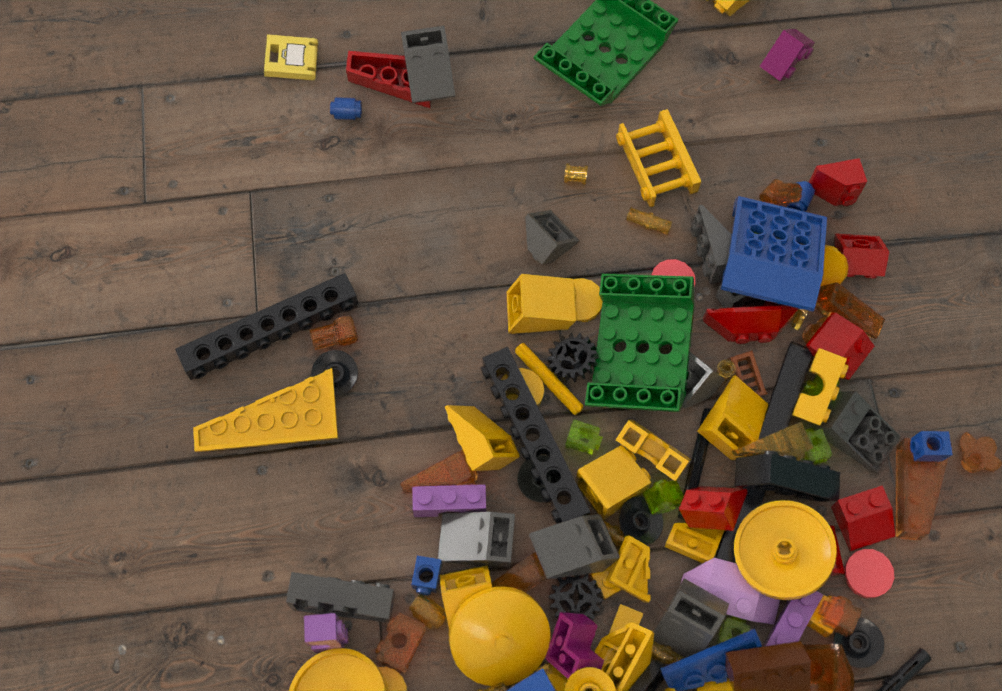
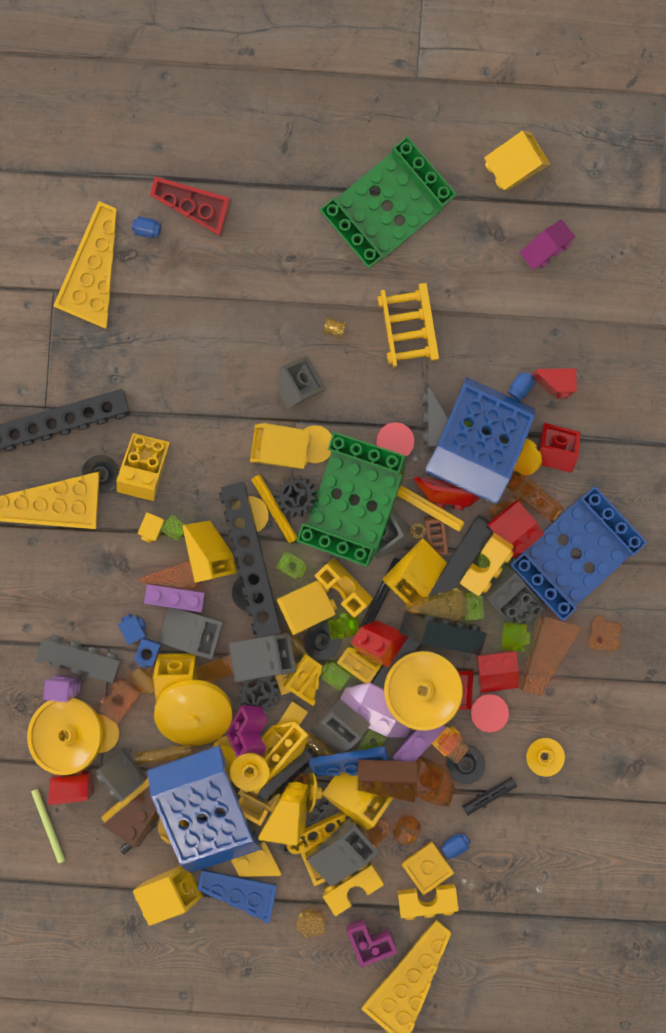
camera: 10 degrees right, 20 degrees up
(289, 170) = (88, 281): none -> yellow wing
(295, 57) = (108, 165): light yellow container -> none
(340, 332) = (108, 438): clear orange piece -> none
(383, 359) = (142, 467): none -> yellow slope
(402, 548) = (132, 628): none -> blue brick
(405, 423) = (151, 527): none -> yellow brick
(428, 64) = (221, 208): dark grey slope -> none
(433, 418) = (173, 527): none -> clear neon green brick
(649, 220) = (388, 382): clear yellow pin -> none
(667, 560) = (335, 675): none -> clear neon green brick
(735, 342) = (430, 508): none -> yellow axle
(781, 192) = (504, 380): clear orange piece -> none
(874, 471) = (515, 637): none -> clear neon green brick
(937, 339) = (601, 537): none -> blue slope
(938, 441) = (568, 634): blue brick -> none
(963, 606) = (552, 763): none -> yellow dish

